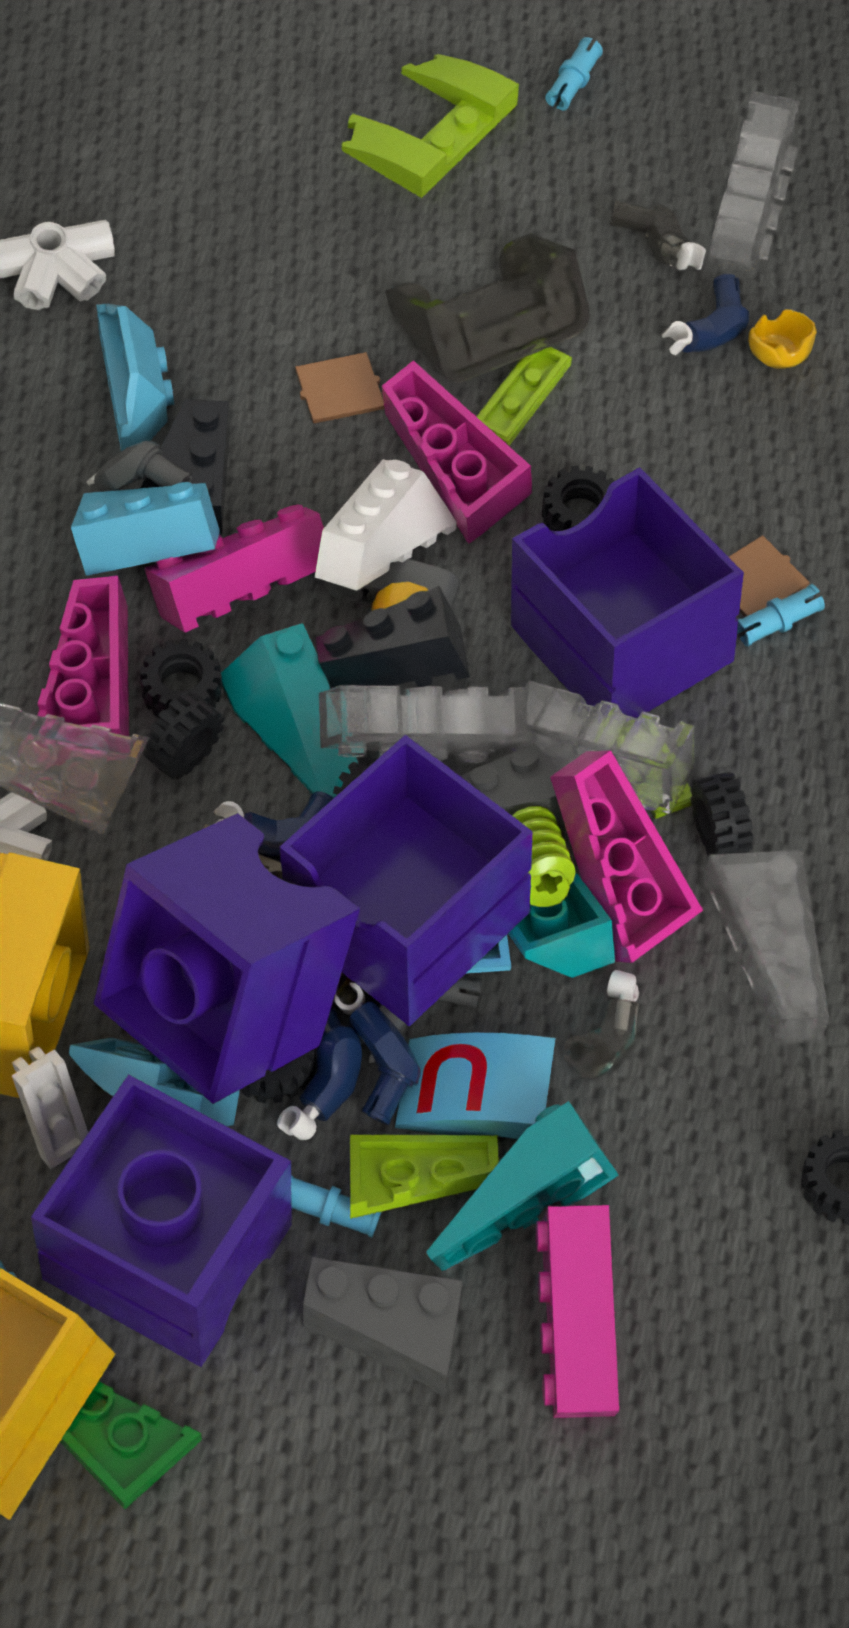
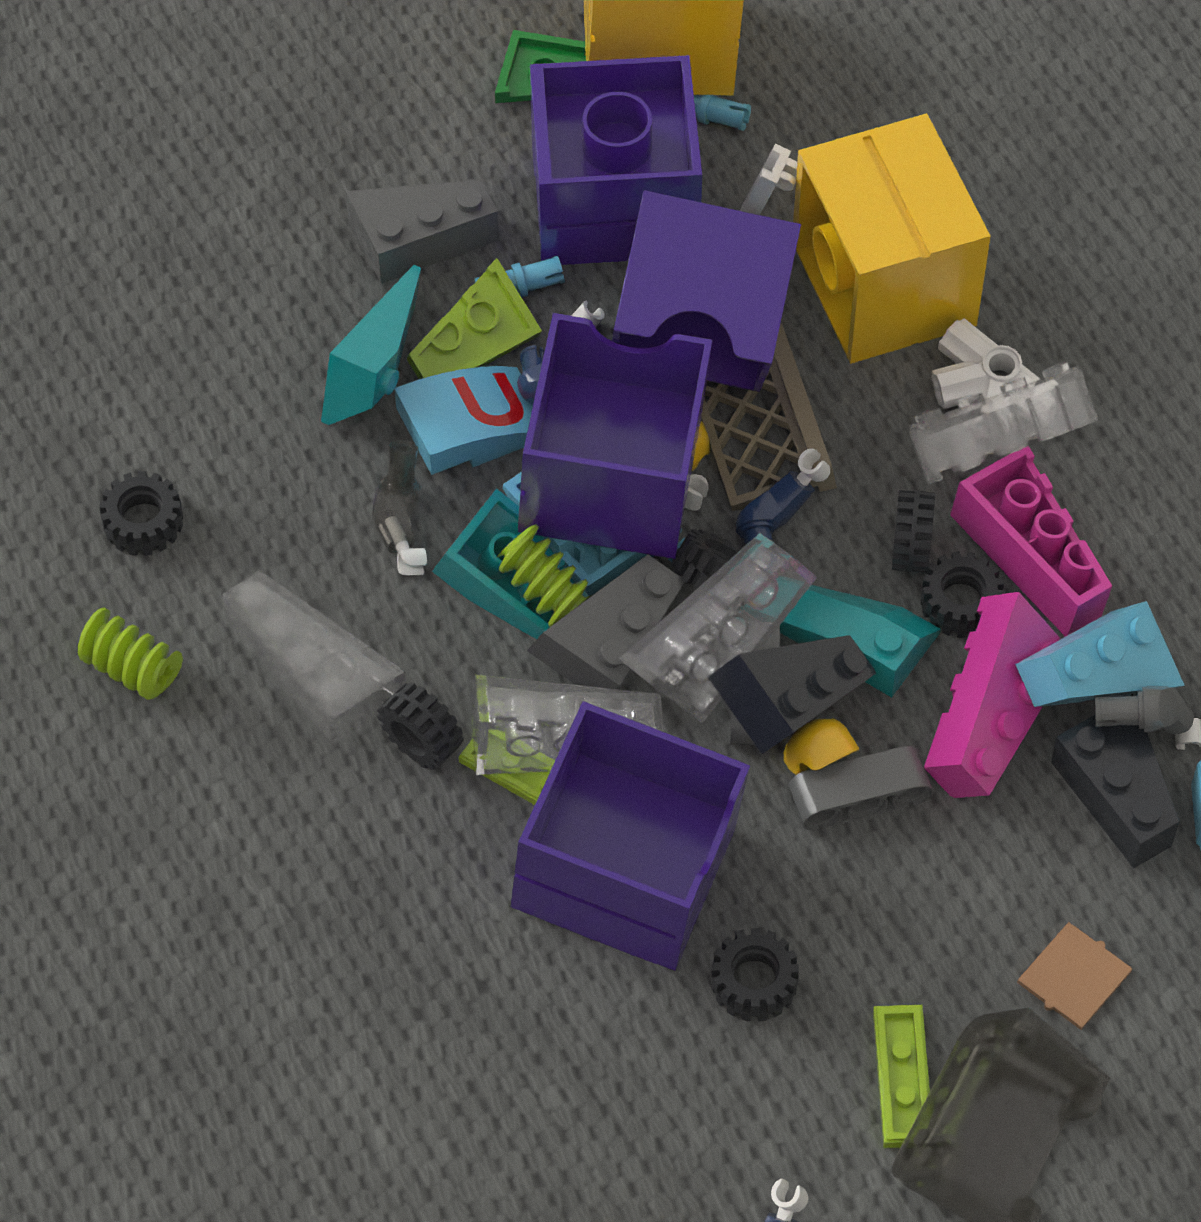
camera: 150 degrees right, 0 degrees up
(381, 525) = (901, 799): white wedge -> none
(457, 452) = (909, 943): dark pink wedge -> none
(579, 1311) = (283, 297): dark pink wedge -> none
(622, 855) = (471, 610): dark pink wedge -> none
(765, 575) = (545, 1014): medium nougat piece -> none
(780, 614) = (497, 975): medium azure pin -> none

